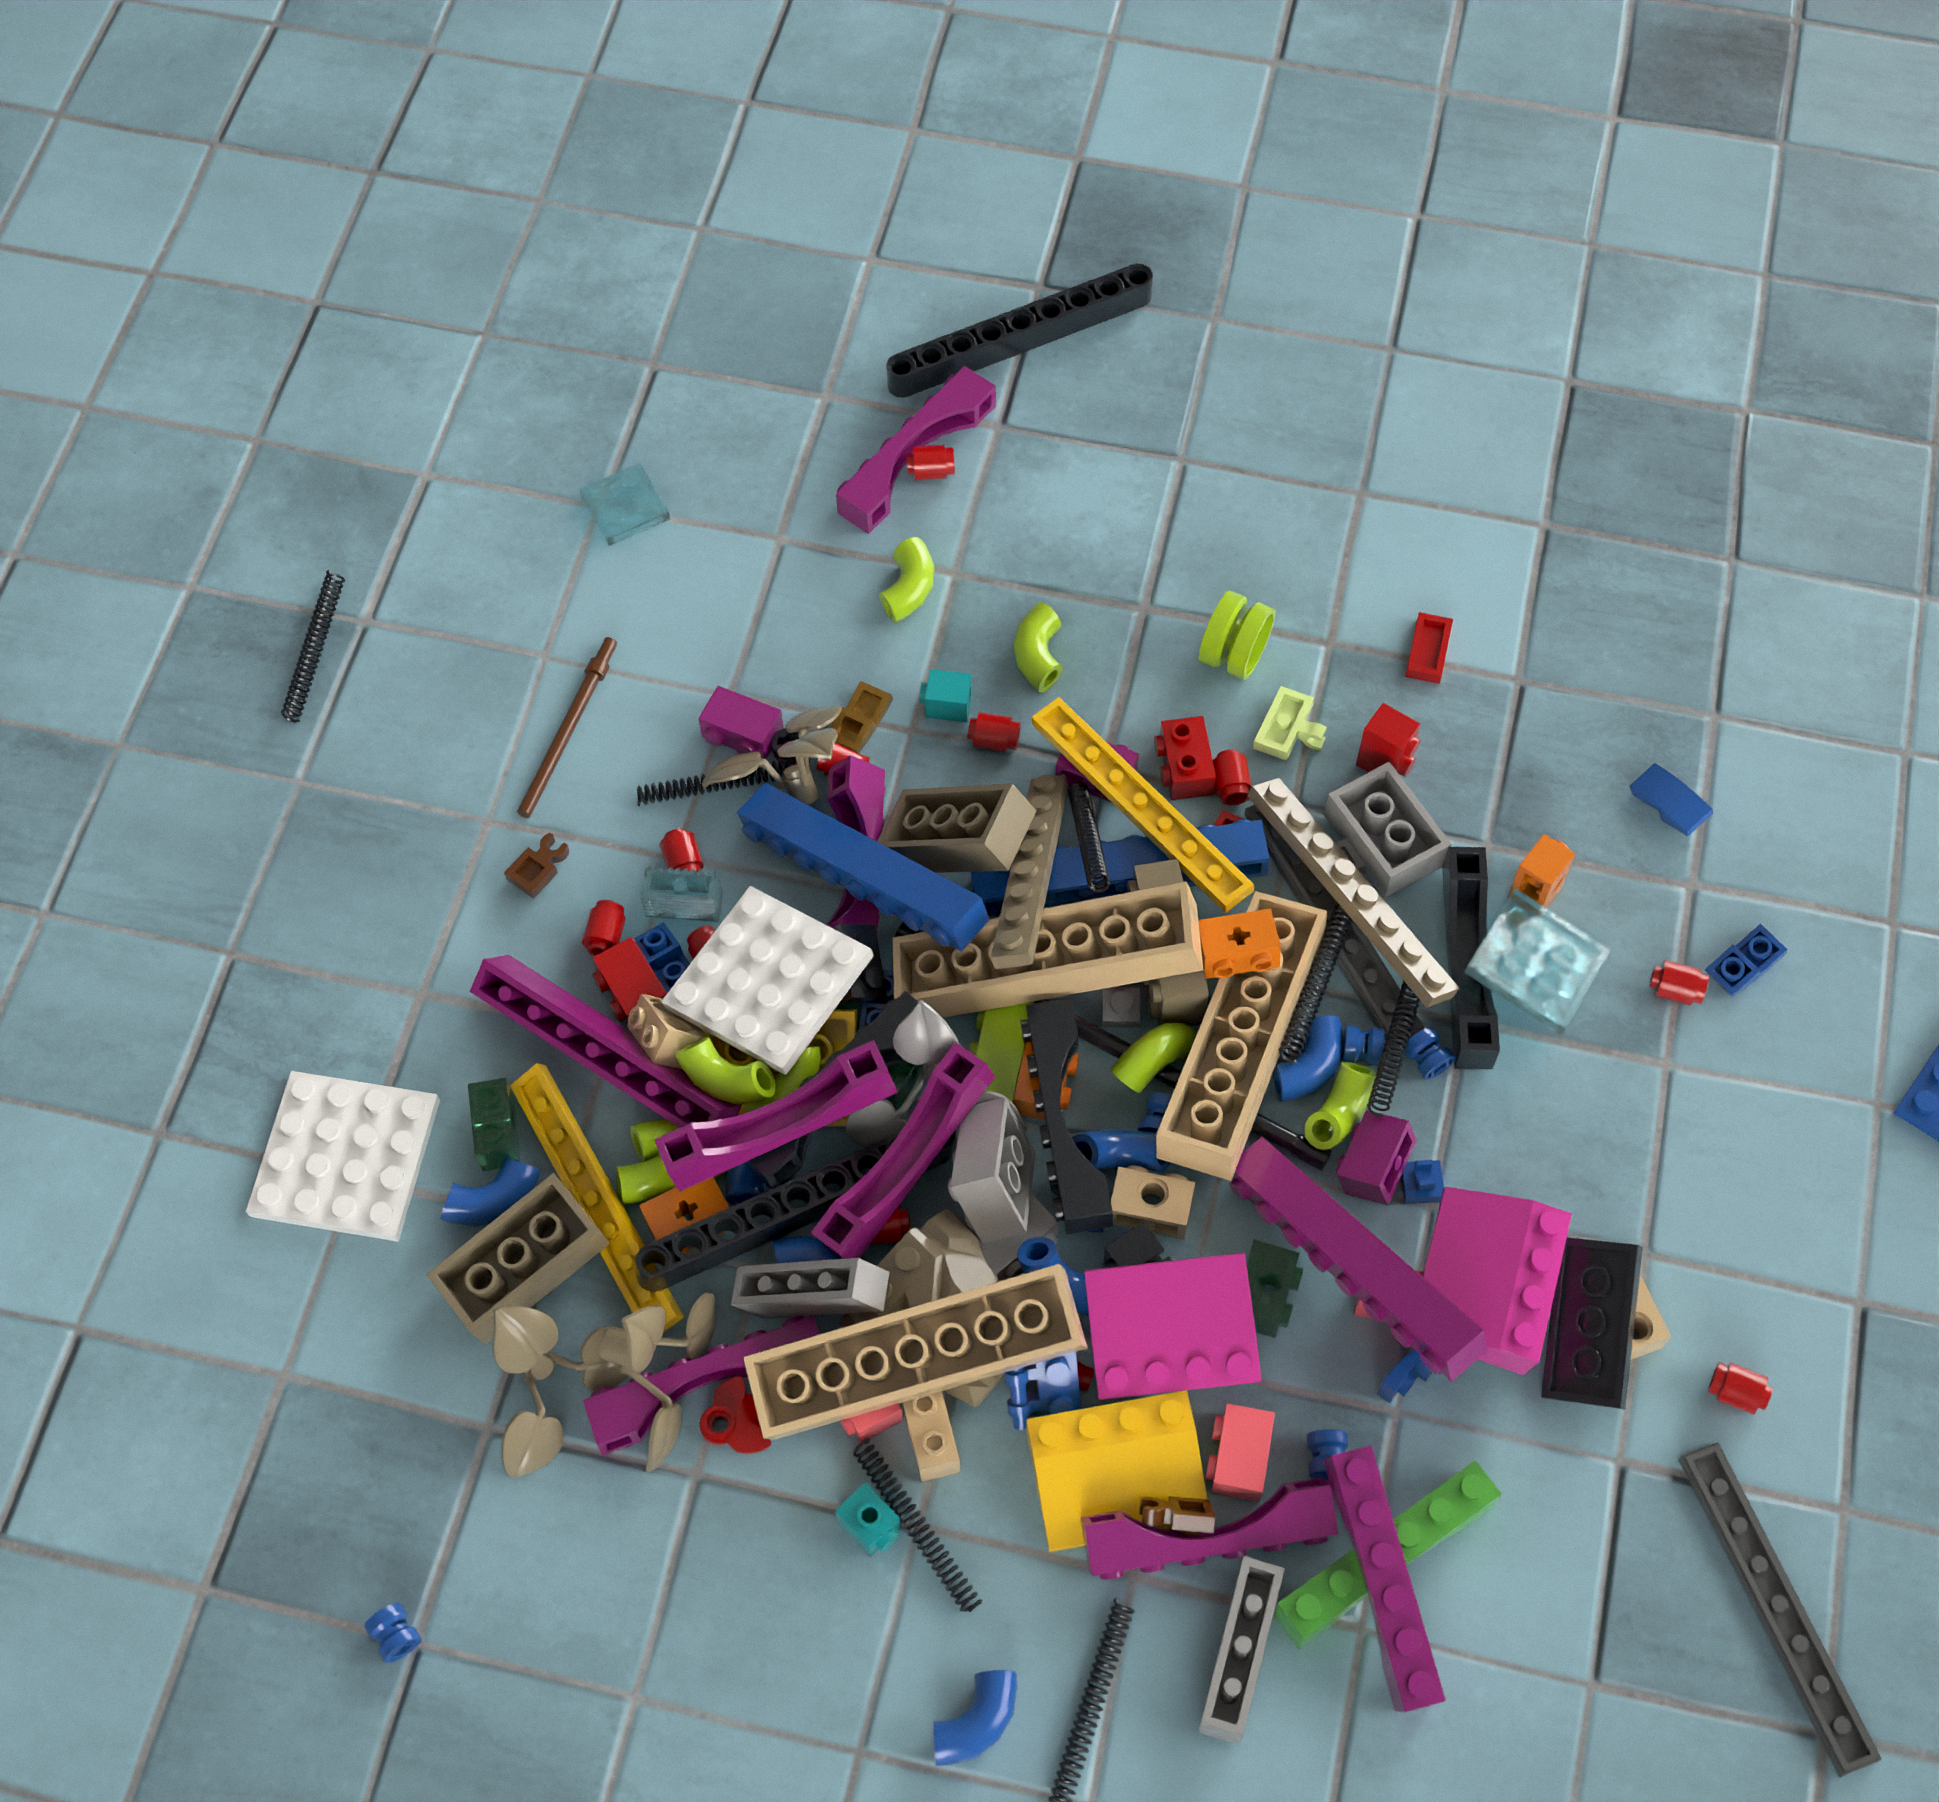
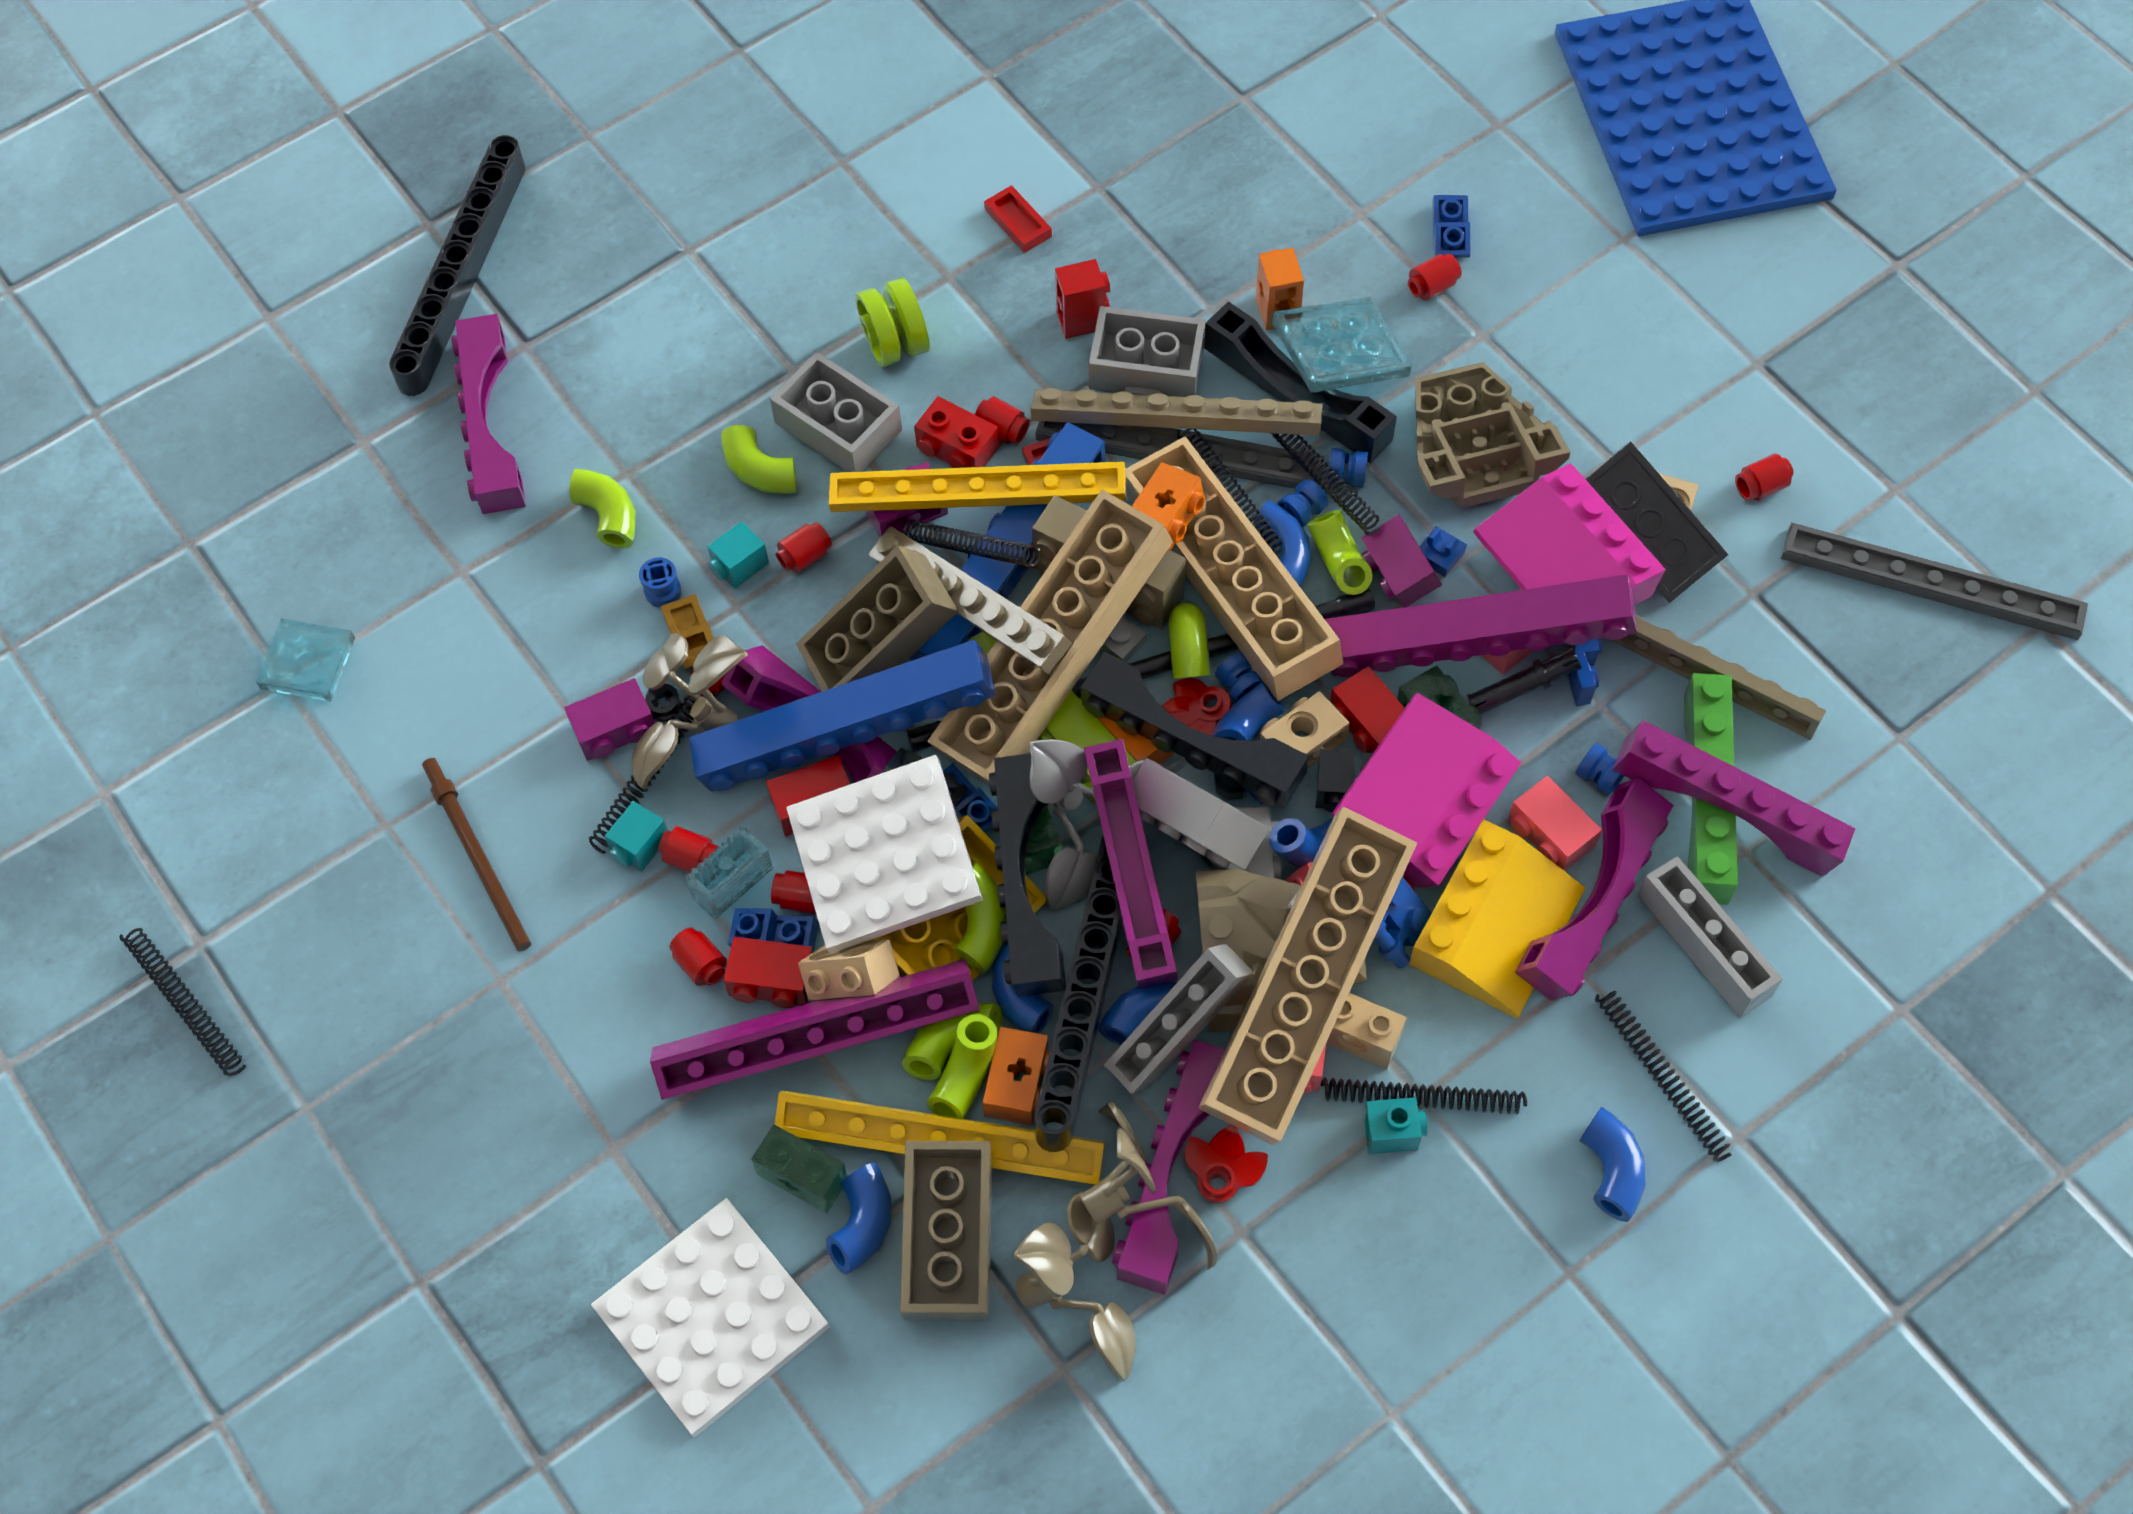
camera: 50 degrees left, 0 degrees up
(536, 869) = (588, 973): reddish brown plate -> none
(661, 812) = (635, 837): none -> teal brick
(718, 1145) = (1009, 982): magenta arch -> none
(722, 1079) = (938, 952): lime cylinder -> none
(799, 891) = (803, 785): none -> red brick
(879, 664) = (660, 581): none -> blue wheel
(931, 462) = (513, 411): red brick -> none
(1102, 1103) = (1191, 702): none -> red plate
(1124, 663) = (836, 414): none -> light grey brick
(1183, 1514) = (1573, 896): reddish brown plate -> none
(1219, 1226) = (1367, 707): none -> red brick
(1288, 722) = (993, 353): yellowish green plate -> none
(1363, 1338) = (1525, 681): none -> black pin
(1500, 1463) = (1748, 690): none -> dark tan plate
(1549, 1128) = (1479, 438): none -> dark tan wedge
(1672, 798) = (1288, 168): blue slope -> none

